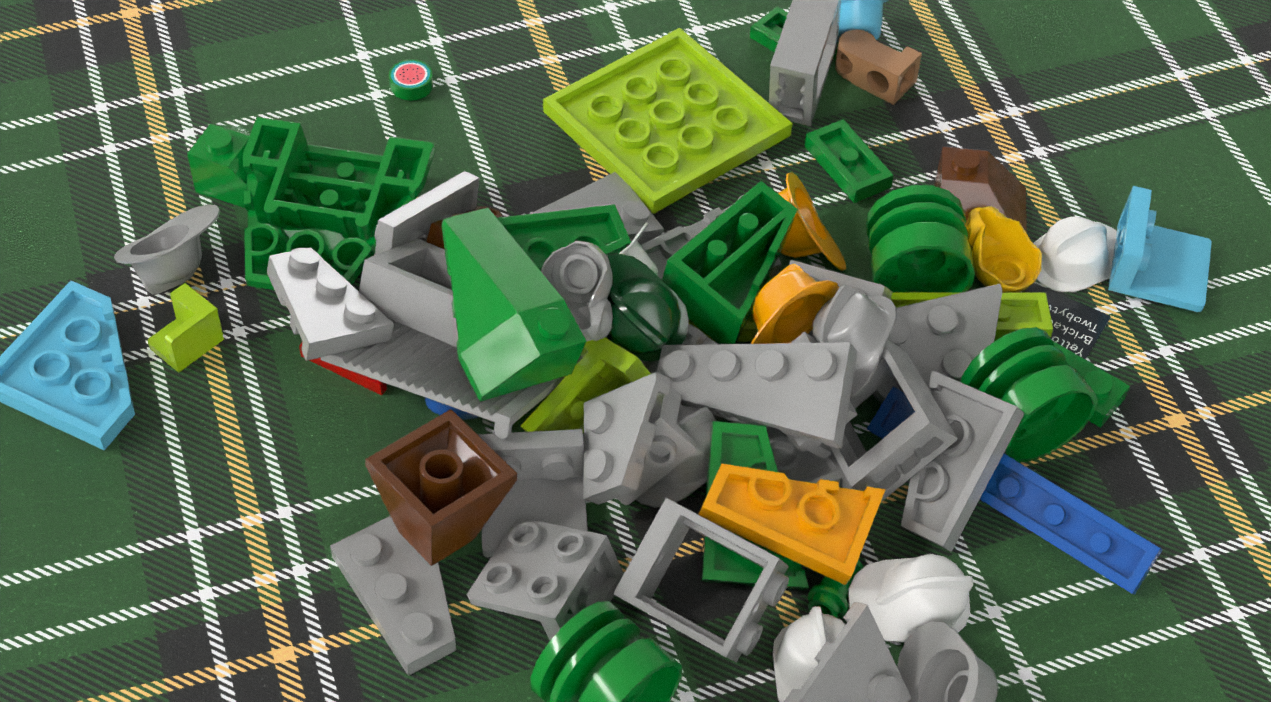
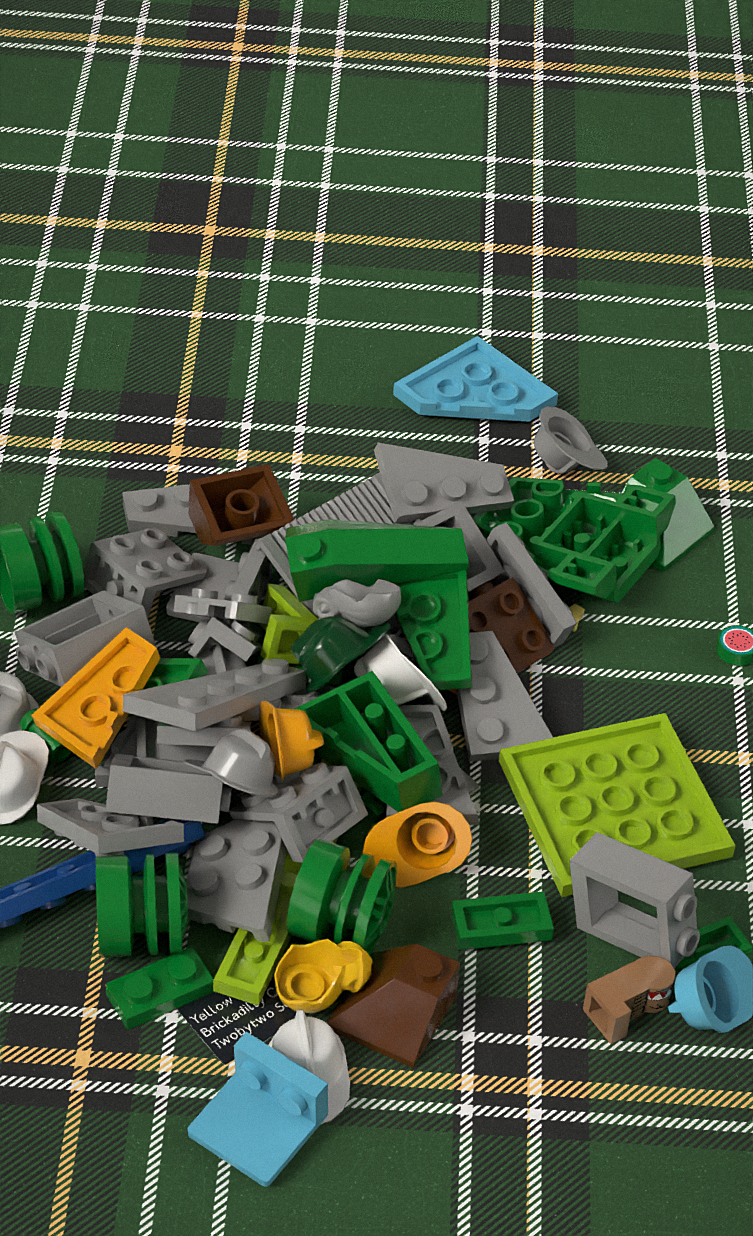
camera: 110 degrees right, 5 degrees down
(191, 333) = (488, 447): lime panel -> none

